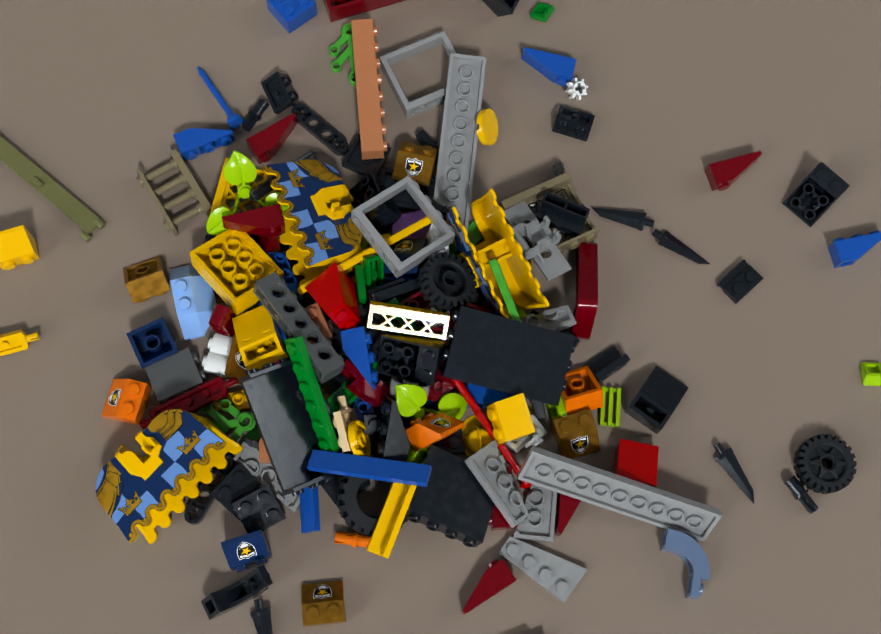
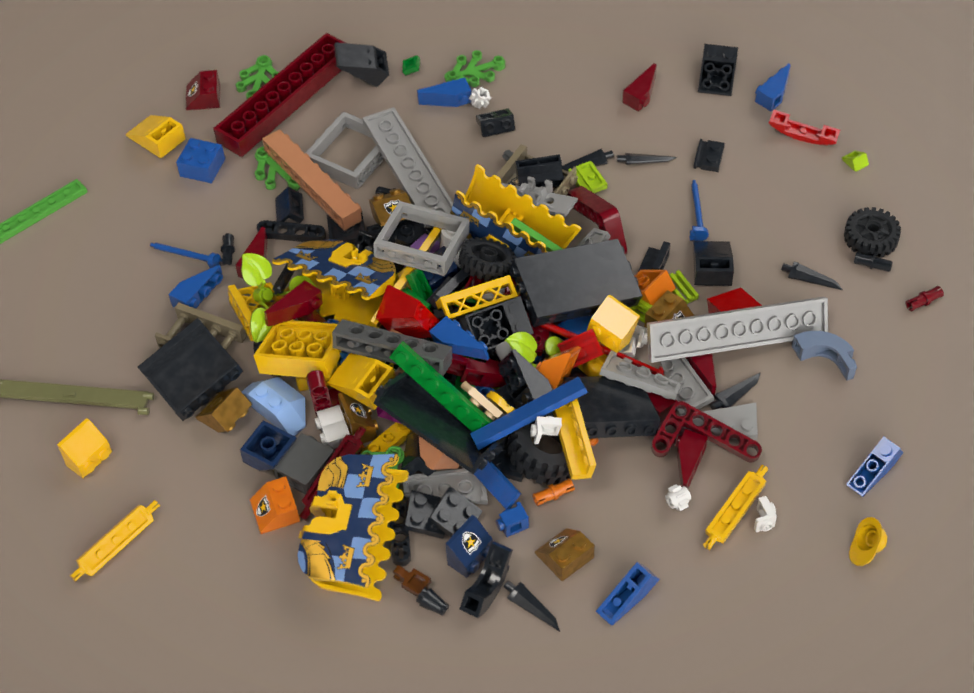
camera: 25 degrees left, 20 degrees down
(142, 224) = (190, 369): none -> black panel
(187, 547) = (412, 581): none -> reddish brown plate
(187, 576) = (430, 600): none -> black cone
(280, 92) = (236, 223): black bracket -> none
(302, 545) = (513, 520): none -> blue brick
(335, 102) = (289, 205): none -> black panel
(378, 489) = (545, 426): none -> white bracket
(451, 618) = (678, 497): none -> white gear
(474, 419) = (589, 346): none -> red plate
(488, 127) = (430, 155): yellow tile -> none
(517, 571) = (705, 429): none -> dark red beam
(568, 546) = (733, 394): none -> black bar
(594, 52) = (497, 64): none -> bright green plant
(611, 237) = (590, 177): none -> lime plate
(669, 361) = (698, 232): none -> blue piece
(819, 563) = (924, 298): none -> dark red pin
(846, 312) = (803, 132): none -> red slope

